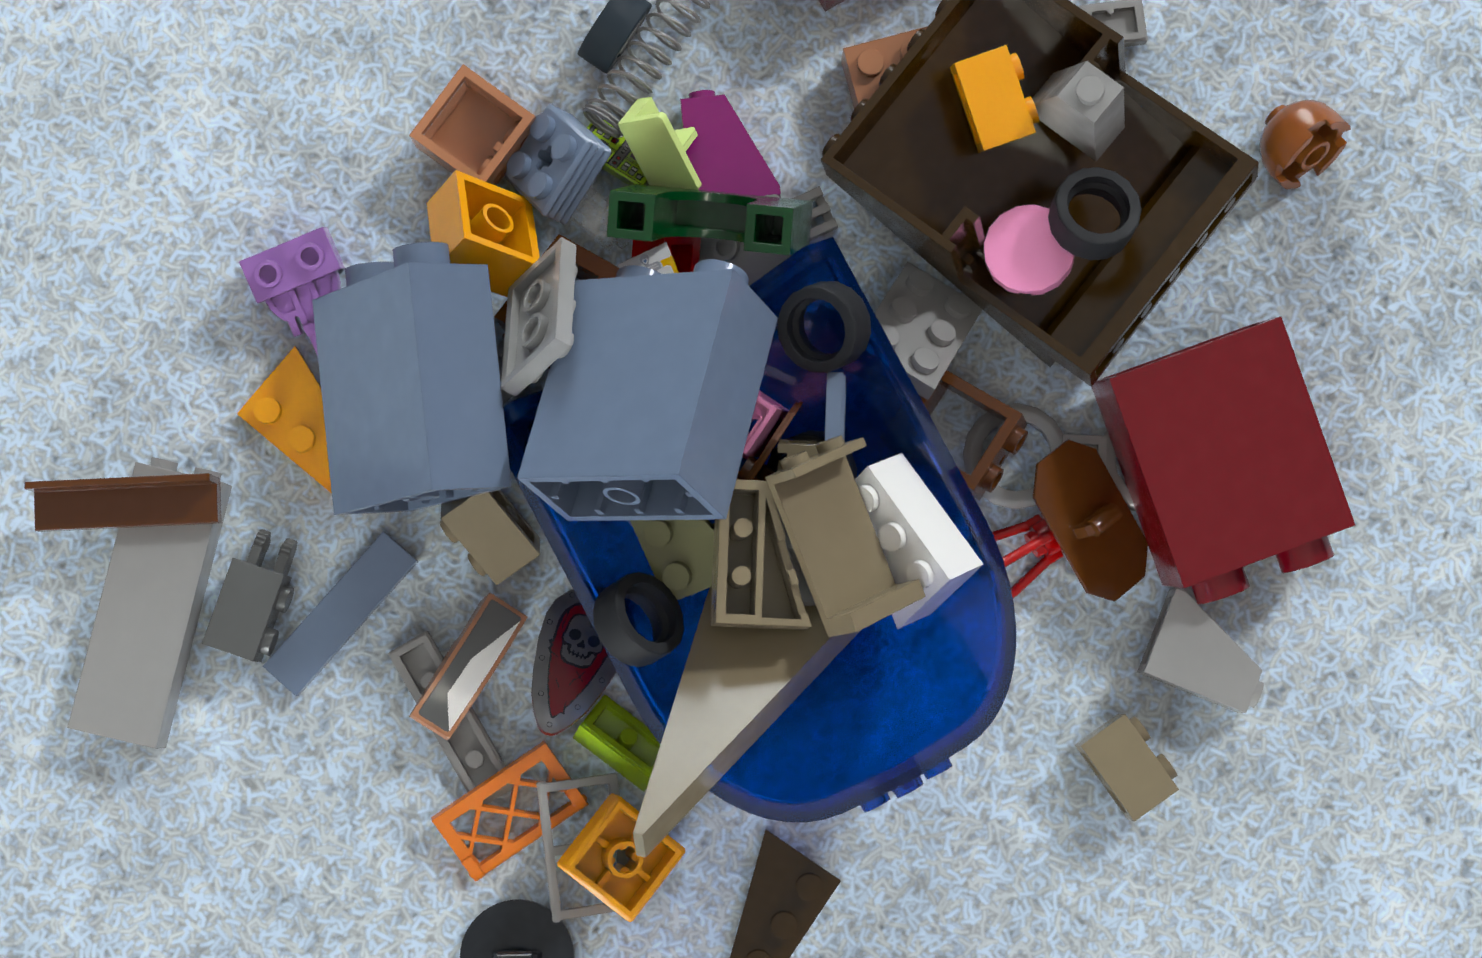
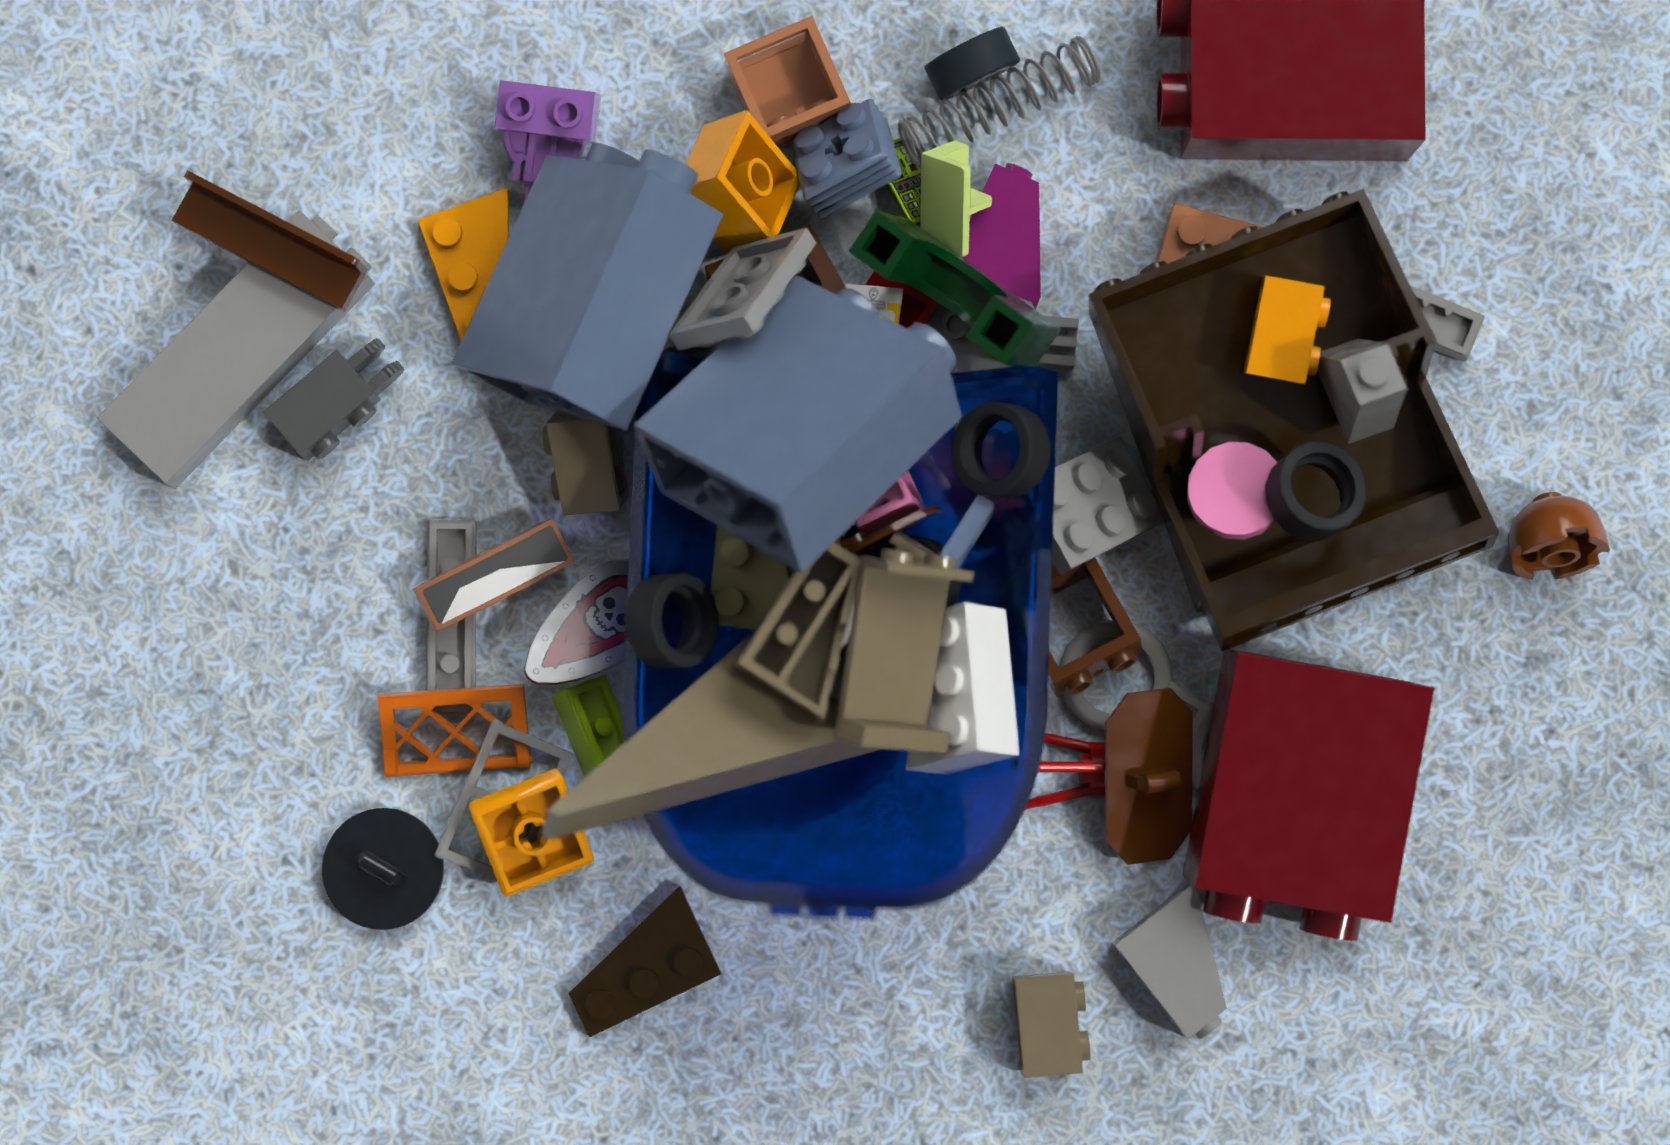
camera: 30 degrees right, 0 degrees up
(340, 614) = (405, 459): sand blue tile -> none

